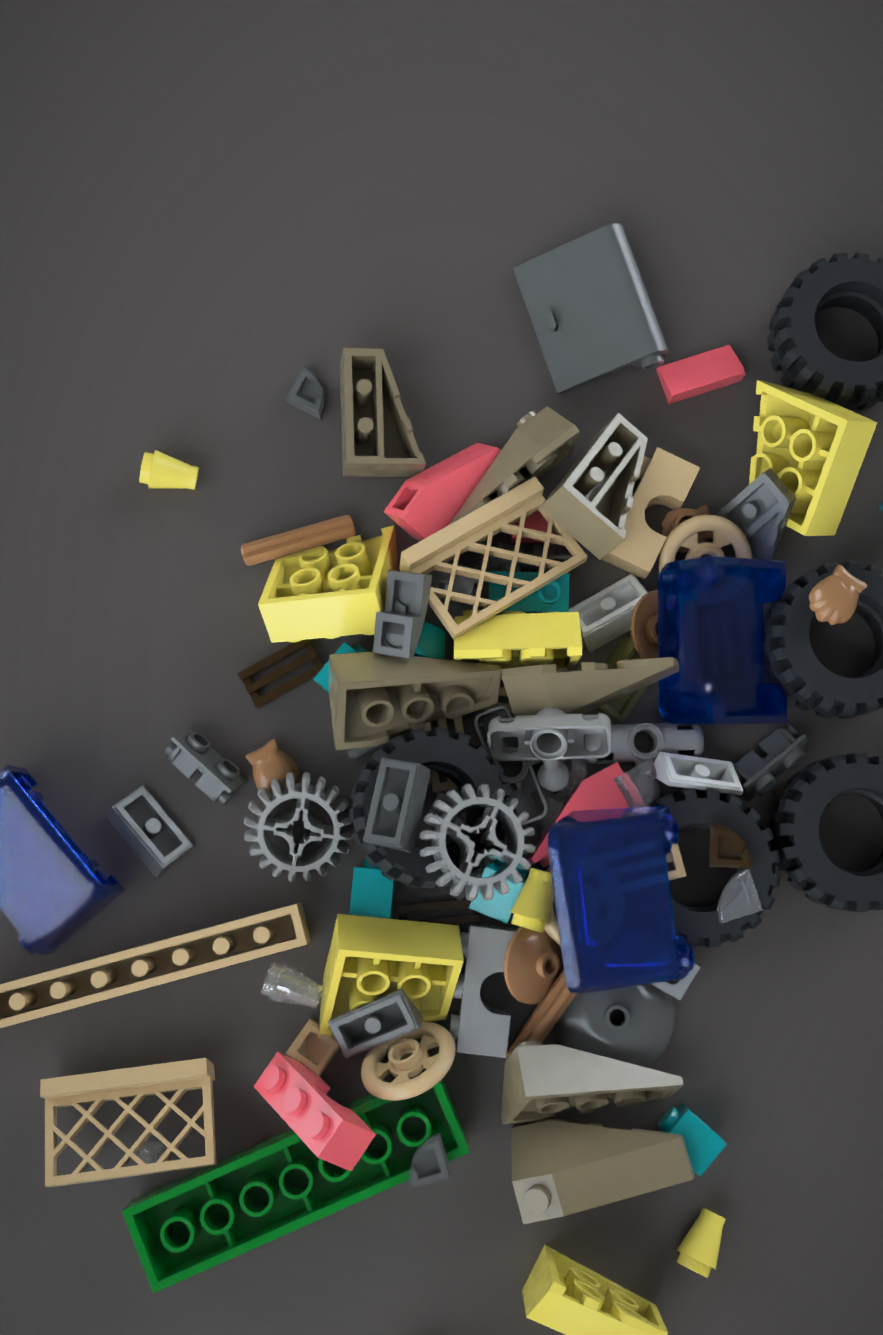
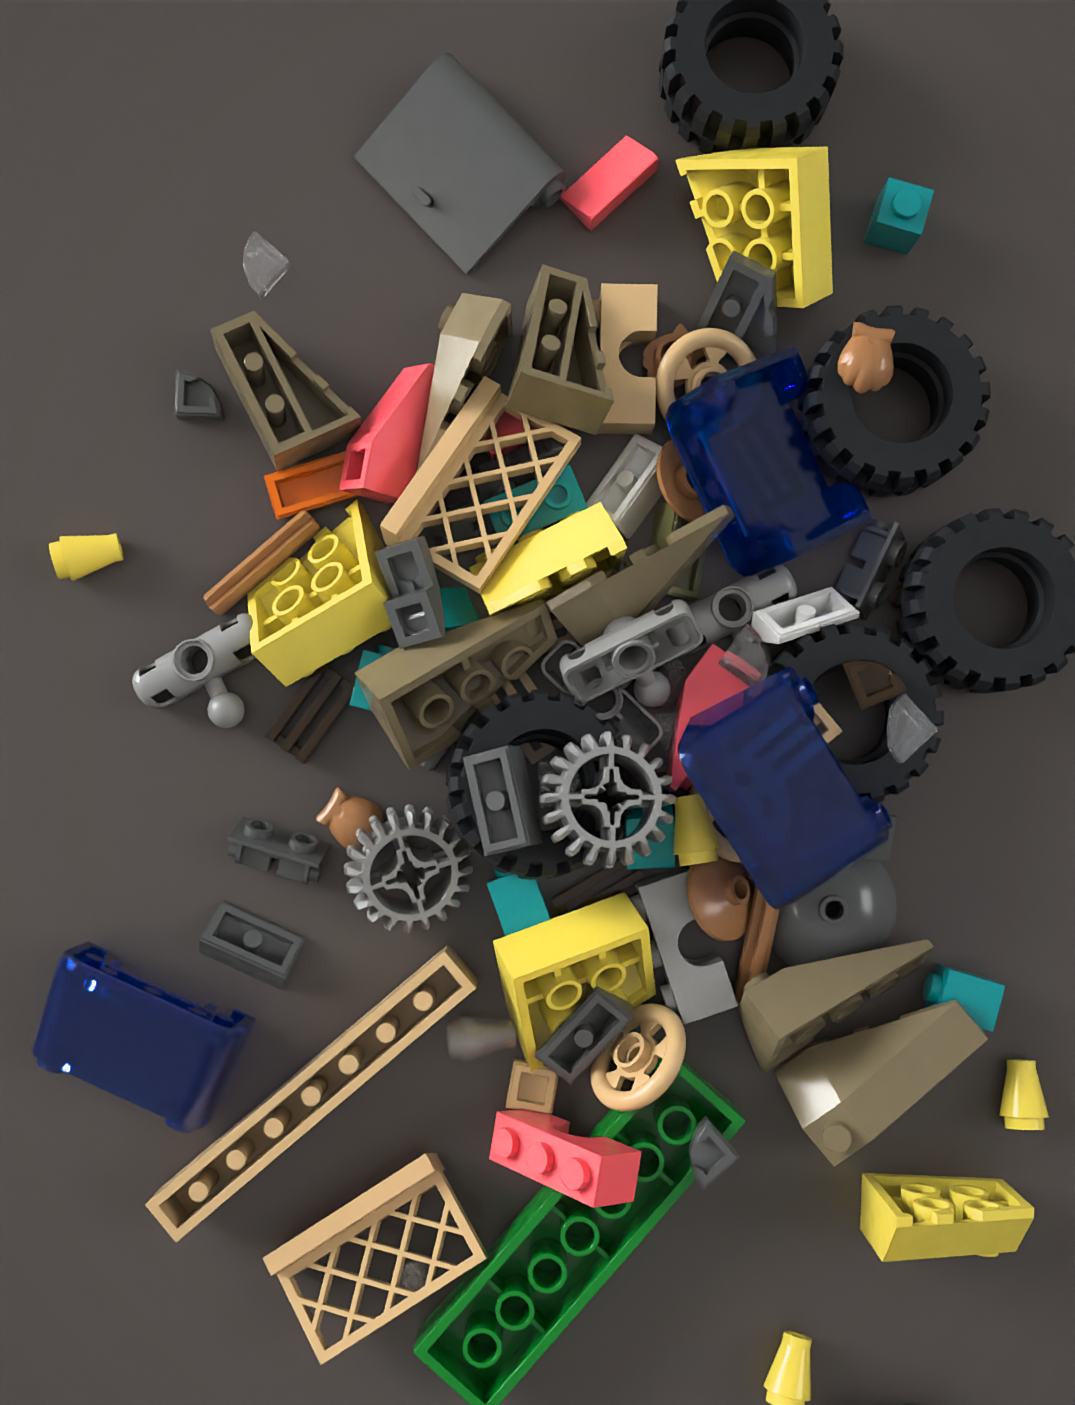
camera: 25 degrees left, 5 degrees up
(193, 595) = (176, 672): none -> light grey piece
(360, 498) = (307, 486): none -> orange tile
(406, 317) = (263, 264): none -> clear tile

